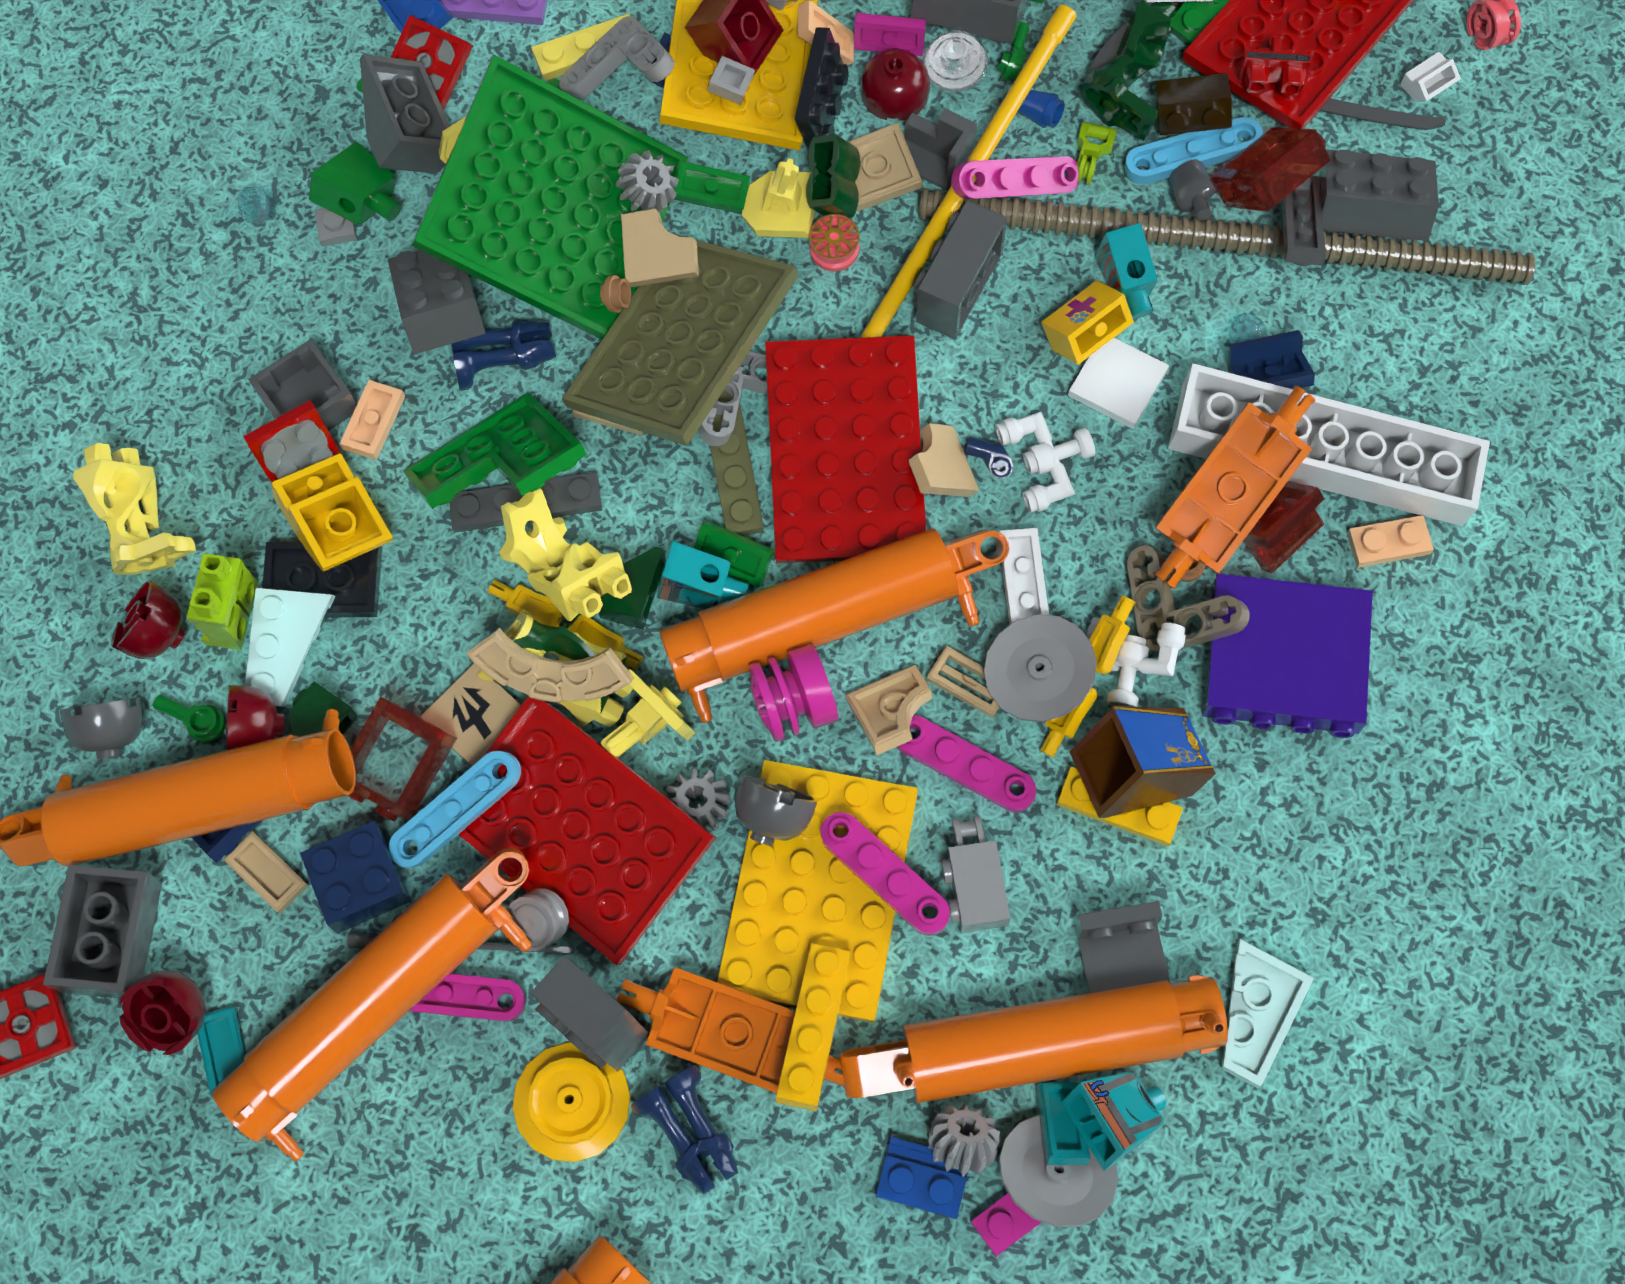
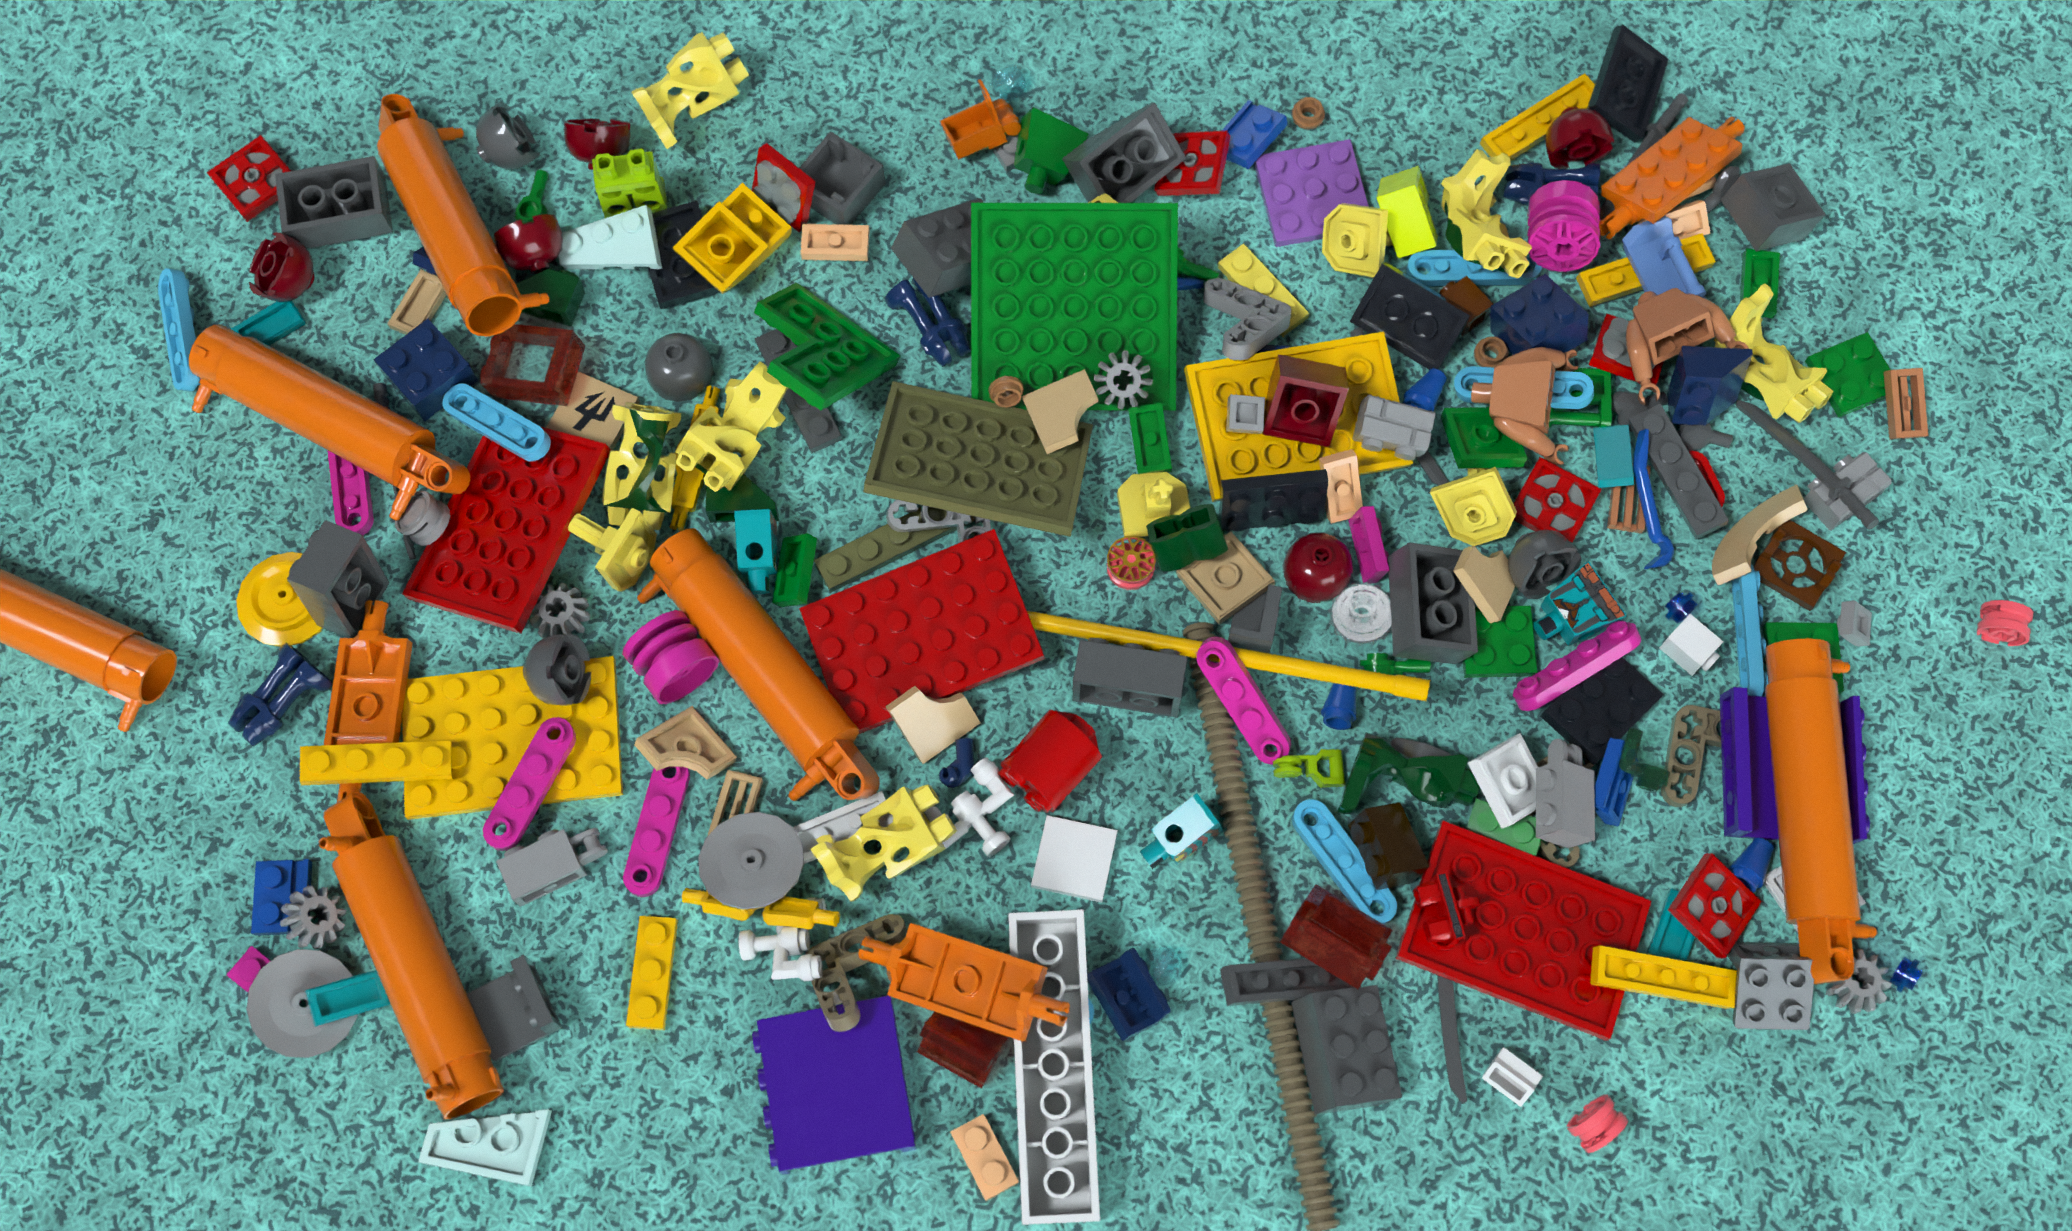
camera: 70 degrees right, 0 degrees up
(187, 1153) = (178, 326): none -> medium azure plate
(299, 241) = (980, 125): none -> orange piece
(454, 613) = (678, 367): none -> dark grey cylinder
(549, 678) = (613, 448): tan tile -> none
(1021, 363) = (1052, 759): none -> red cylinder
(1053, 510) = (851, 866): none -> light yellow hips
(1087, 322) = (1117, 810): yellow brick -> none
(1115, 1115) = (359, 1040): teal torso -> none
(1141, 759) = (689, 976): reddish brown slope -> none
(1193, 188) = (1296, 871): dark grey piece -> none

